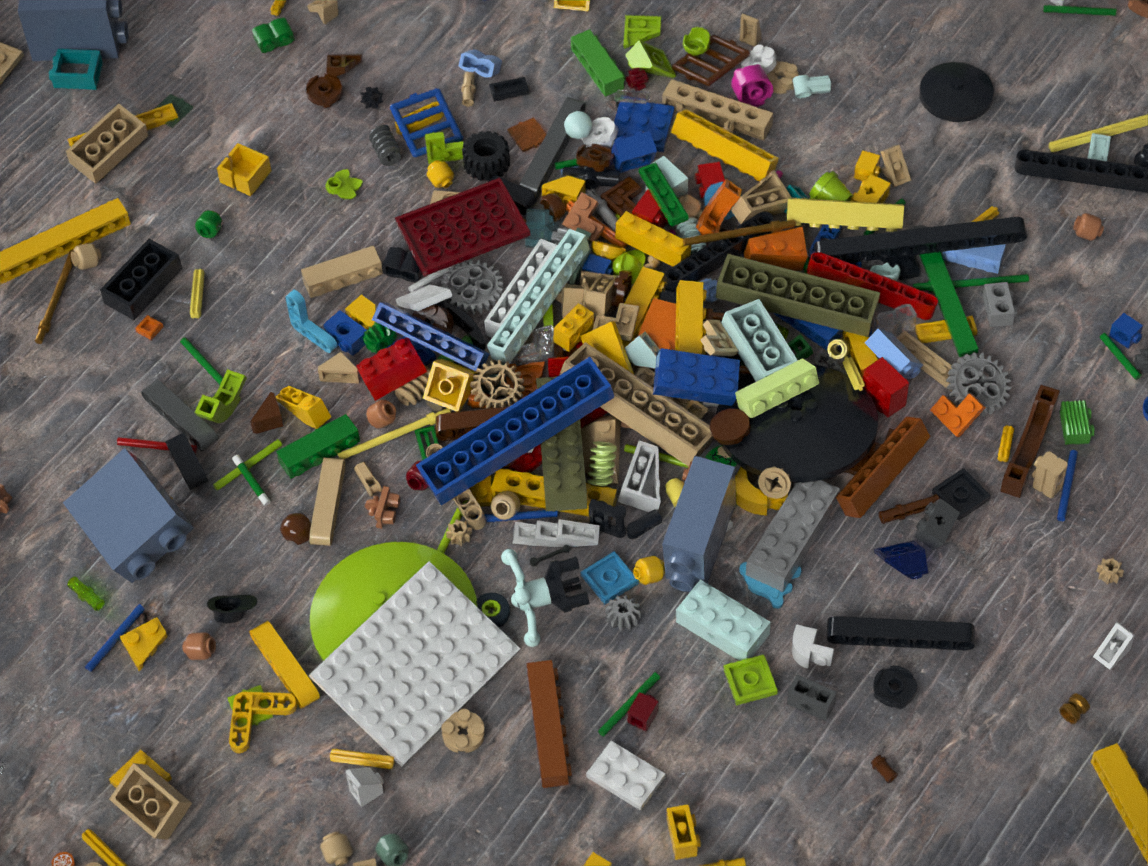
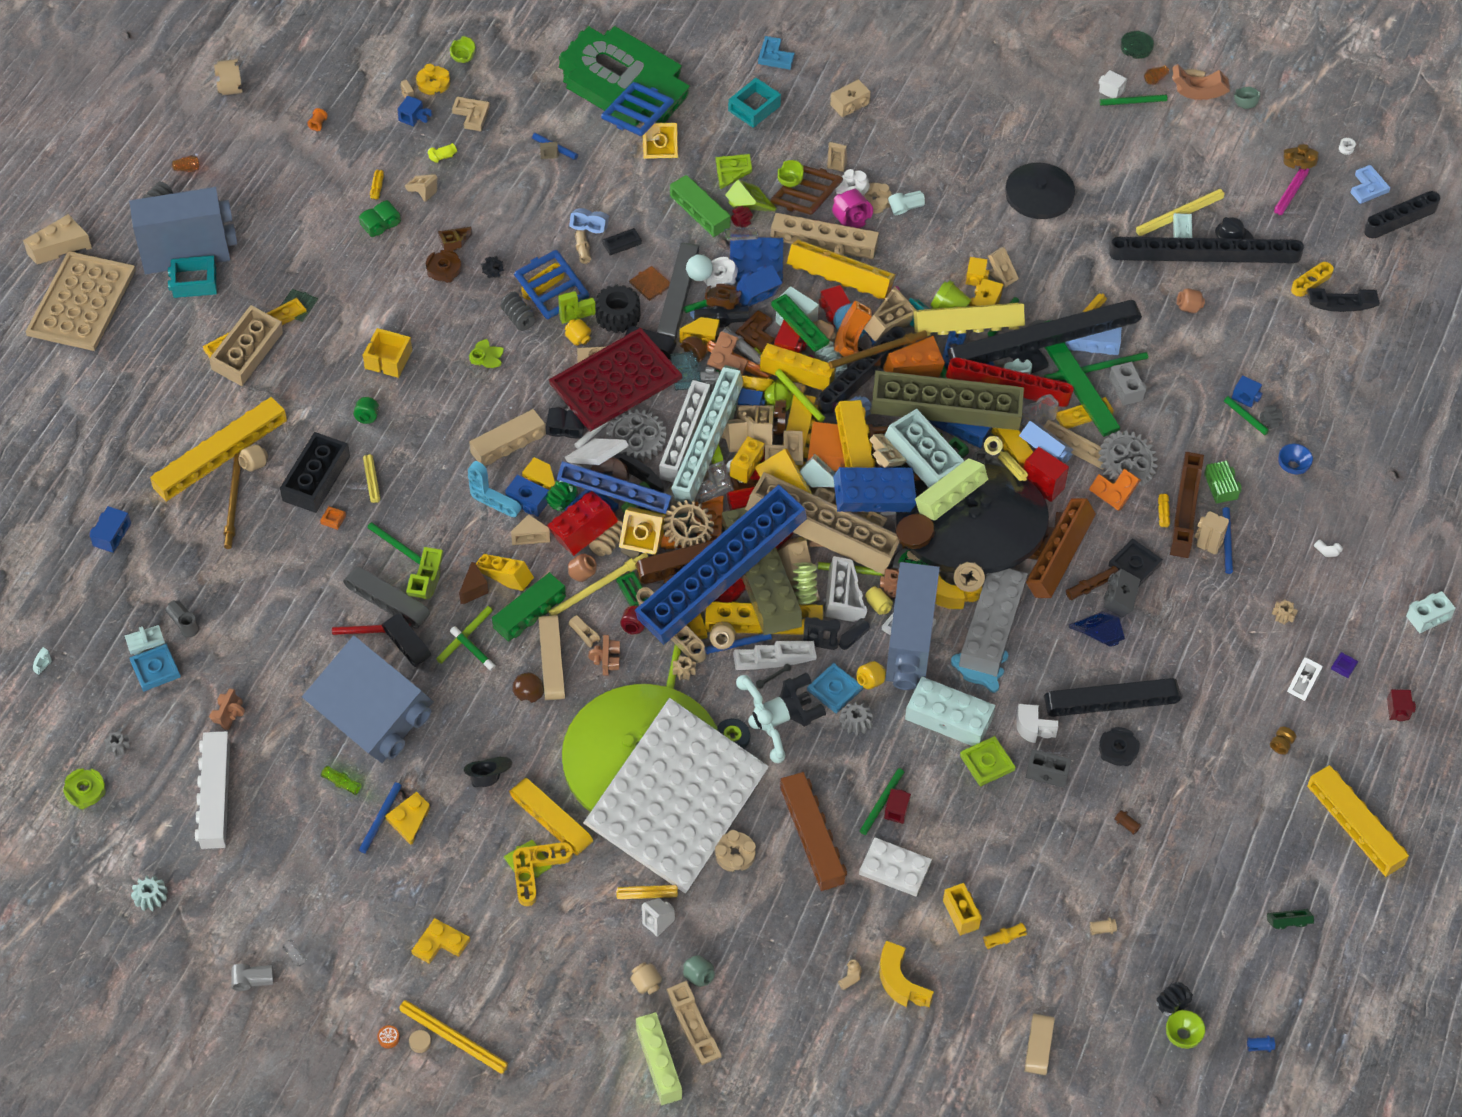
camera: 15 degrees left, 0 degrees up
(150, 801) = (460, 964): tan brick -> none
(199, 646) = (465, 812): nougat head -> none
(647, 269) = (803, 399): none -> lime bar

